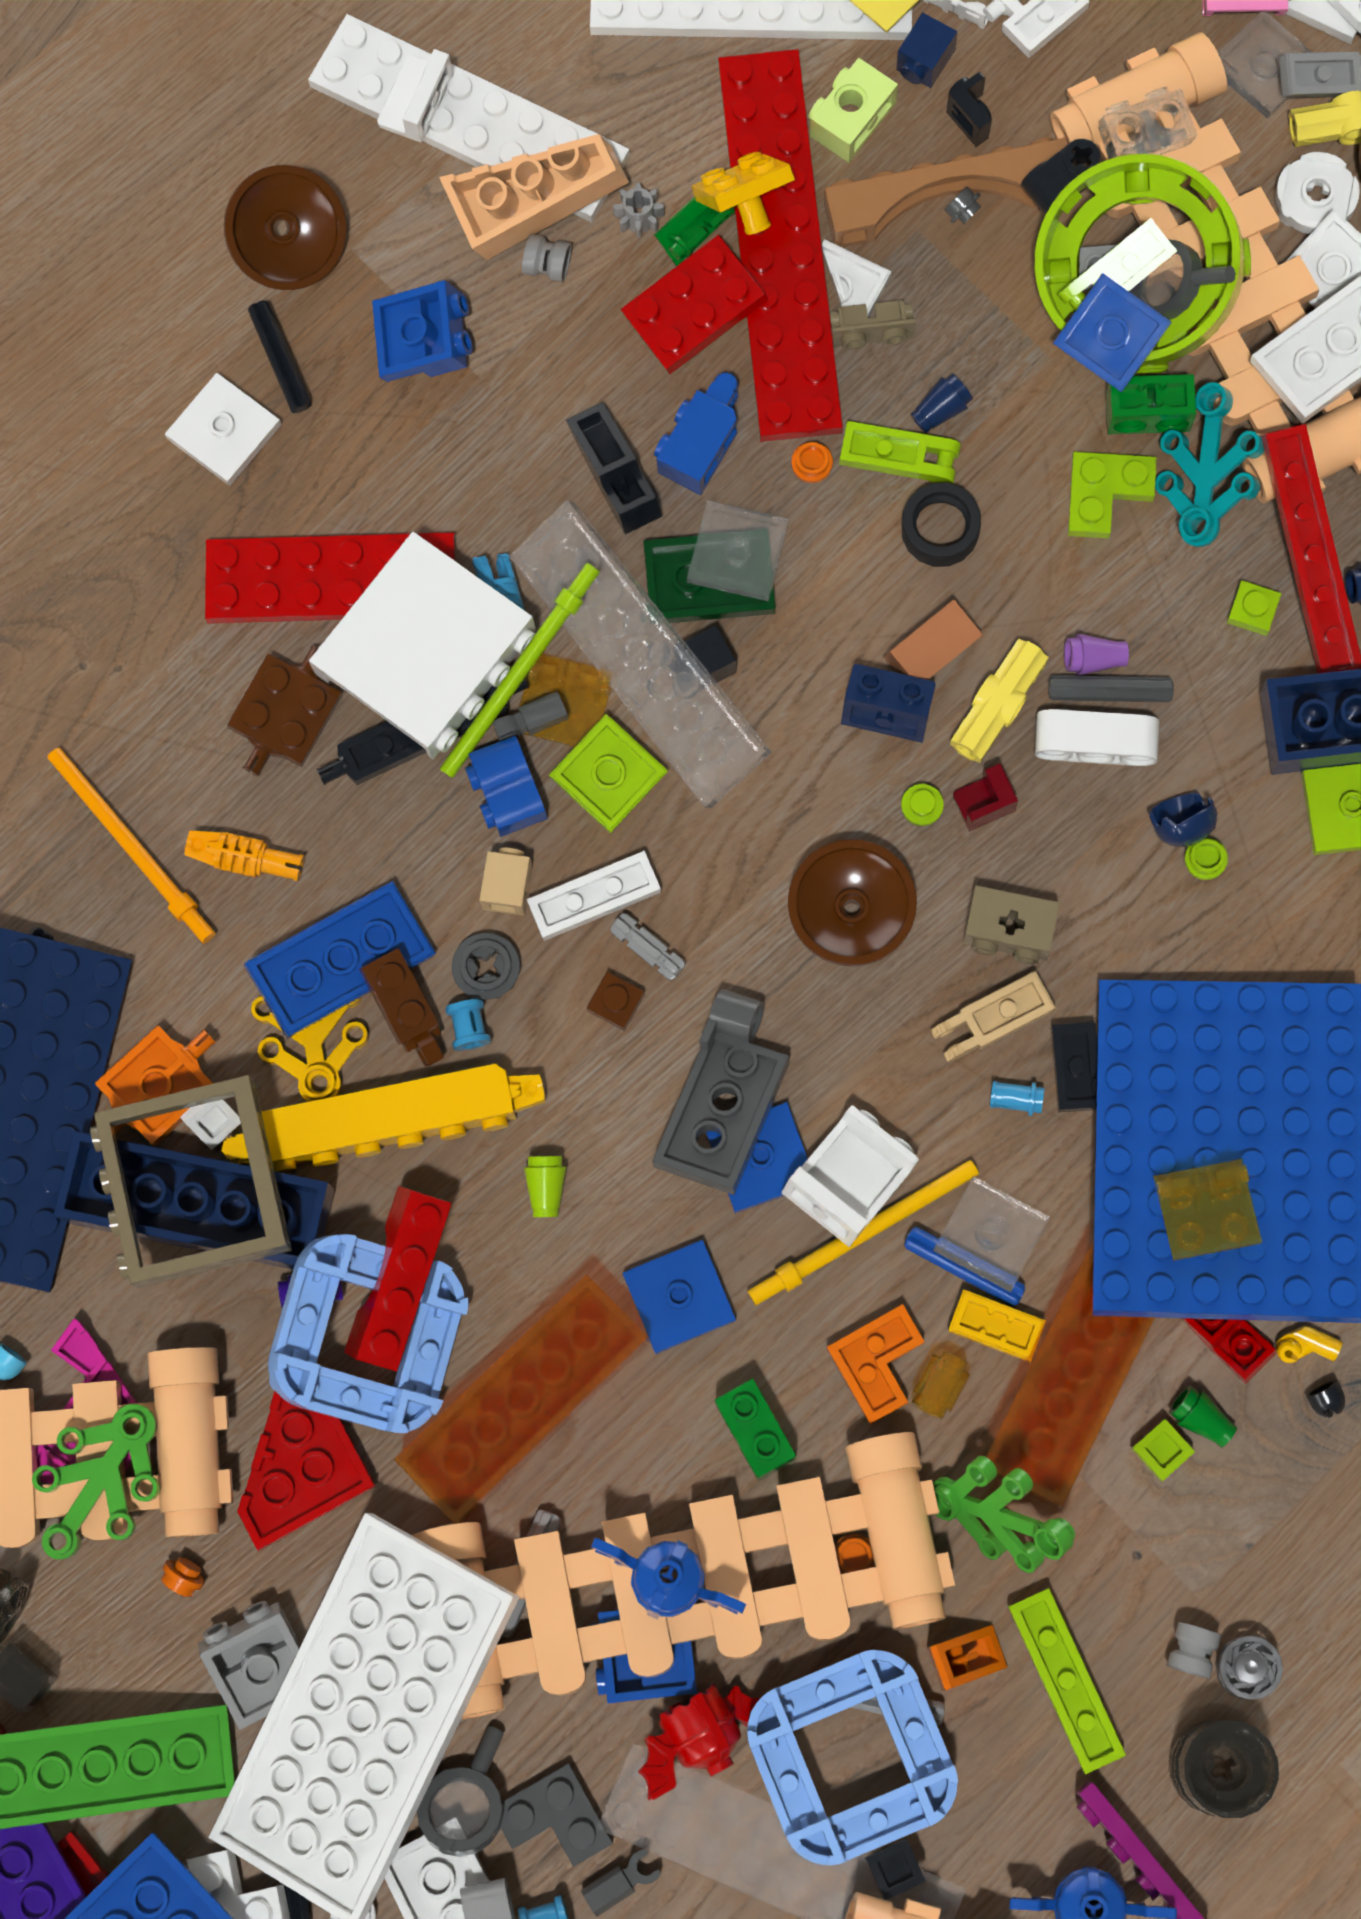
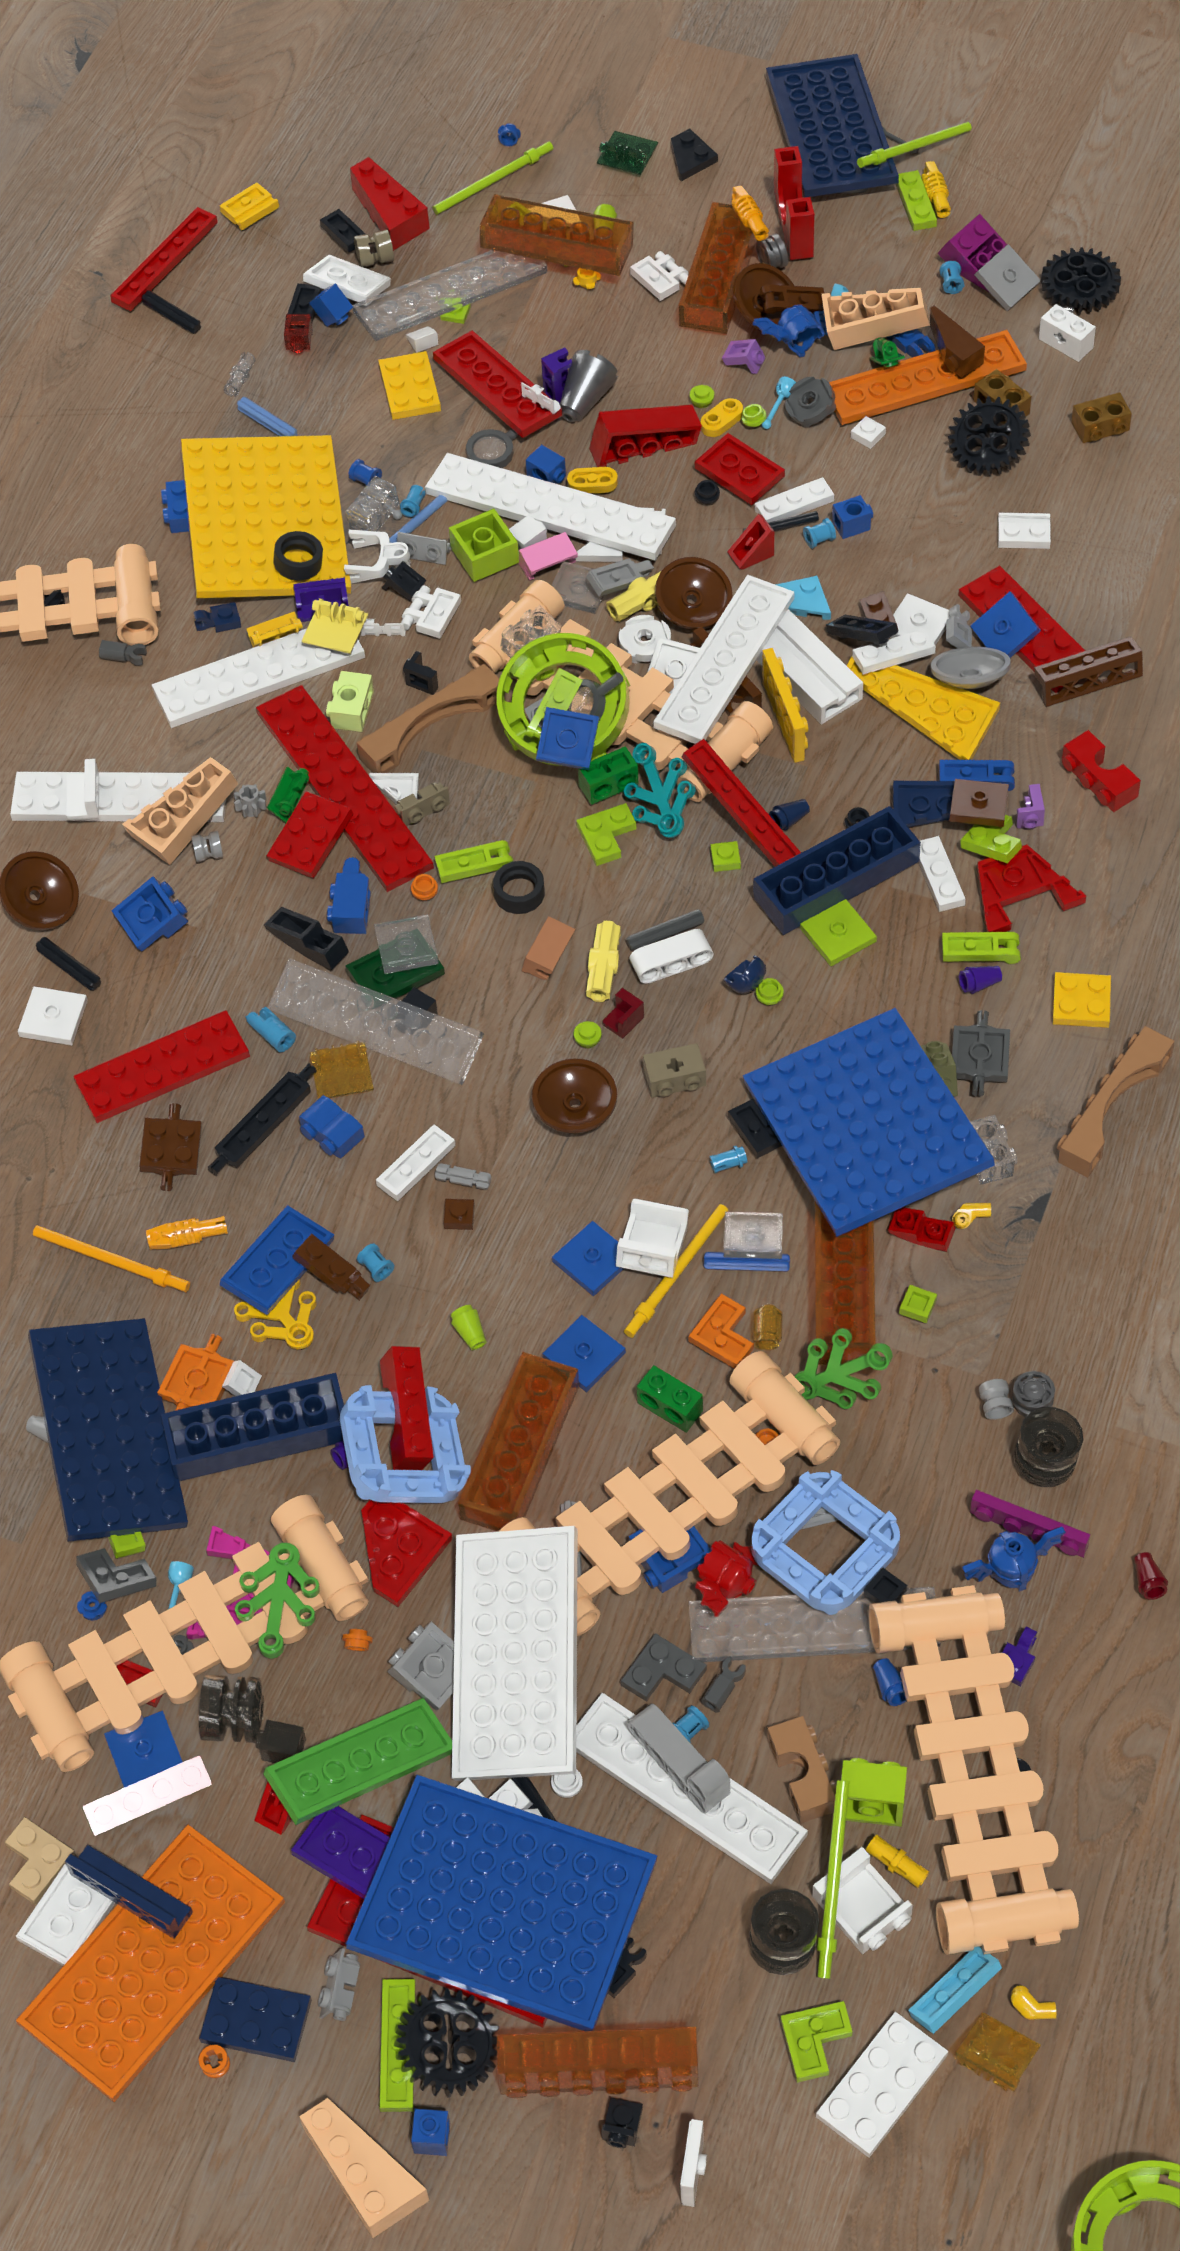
camera: 30 degrees left, 20 degrees down
(262, 1170) = (281, 1443): dark tan window -> none
(391, 1116) = (355, 1328): yellow hinge -> none
(424, 644) = (242, 1065): white panel -> none
(463, 1805) = (603, 1683): piece -> none
(484, 947) = (362, 1220): dark grey gear -> none
(506, 882) = (358, 1177): tan brick -> none
(532, 717) = (328, 1082): dark grey bar -> none
(567, 603) = (318, 1009): lime bar -> none
(608, 773) = (389, 1095): lime plate -> none
(667, 1598) = (661, 1484): blue helmet -> none
(731, 1066) = (543, 1216): dark grey hinge -> none
(743, 188) = (309, 757): yellow plate -> none
(888, 703) = (539, 988): dark blue bracket -> none
(926, 51) = (378, 655): dark blue brick -> none
(942, 403) = (486, 824): dark blue cone -> none
(963, 206) = (443, 724): dark grey plate -> none
(967, 1657) = (862, 1466): orange slope -> none
(996, 1326) = (783, 1283): yellow plate -> none
(997, 1015) = (692, 1123): tan hinge -> none
(1052, 176) = (487, 681): black piece -> none
(1066, 1681) = (931, 1450): lime plate -> none
(1092, 654) = (643, 916): medium lavender cone -> none
(1201, 1416) = (931, 1276): green cone -> none
(1207, 1209) = (871, 1145): clear yellow hinge -> none
(1327, 1399) = (997, 1233): black hinge -> none

